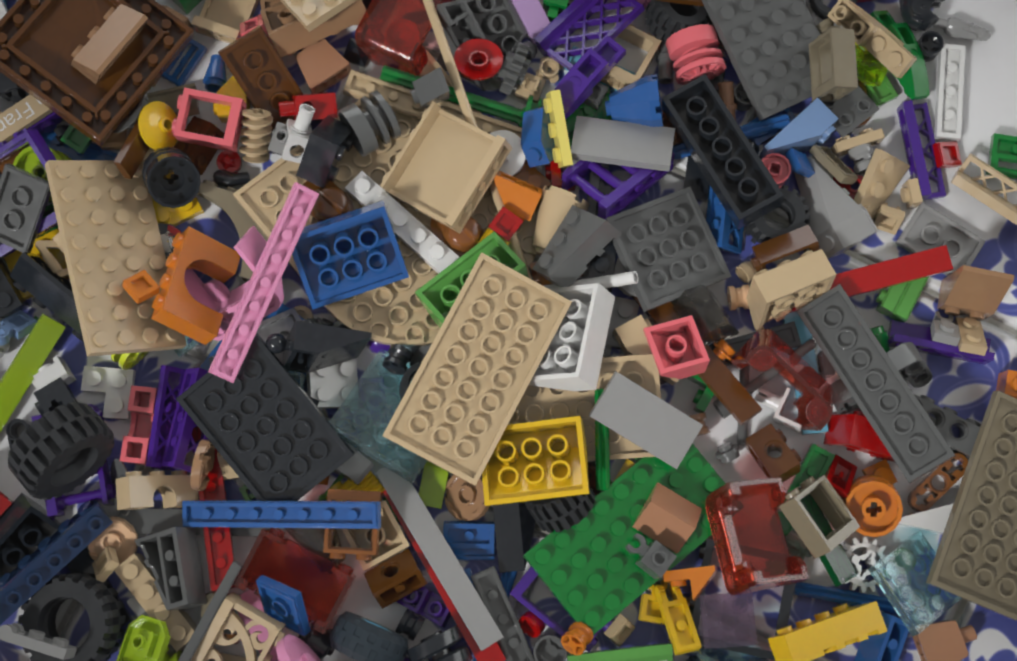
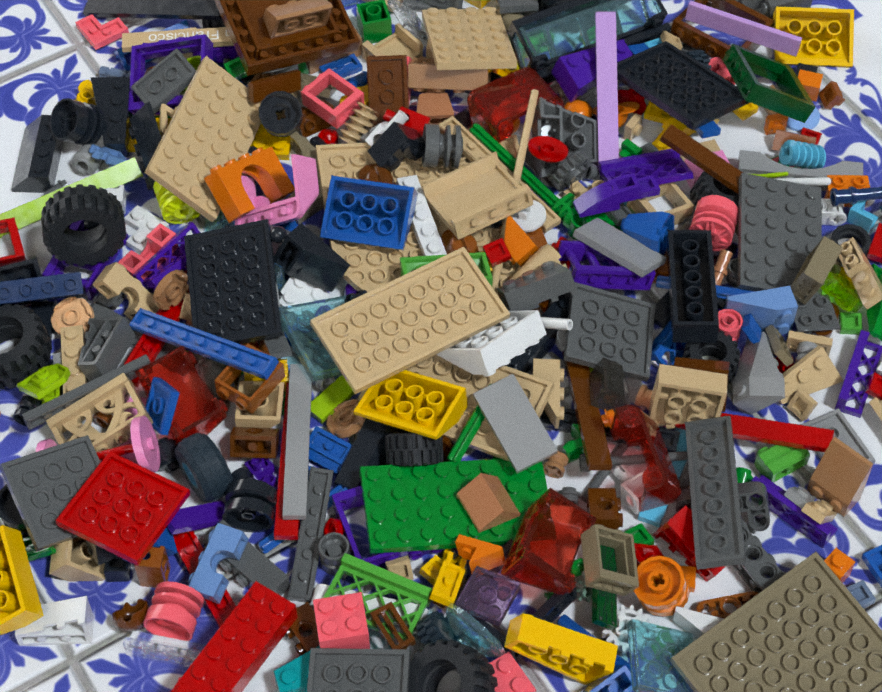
camera: 30 degrees right, 25 degrees down
(105, 564) = (57, 323): tan tile -> none
(141, 286) = (211, 157): orange plate -> none
(156, 125) = (290, 80): yellow dish -> none
(263, 283) = (295, 189): bright pink tile -> none
(430, 88) = (502, 142): dark grey slope -> none
(535, 137) = (559, 217): blue slope -> none
(557, 129) = (575, 210): light yellow plate -> none
(577, 638) = (361, 544): orange wheel -> none
(653, 558) = (457, 516): dark grey brick -> none
(677, 348) = (570, 387): coral slope -> none
(911, 193) = (831, 397): tan plate -> none

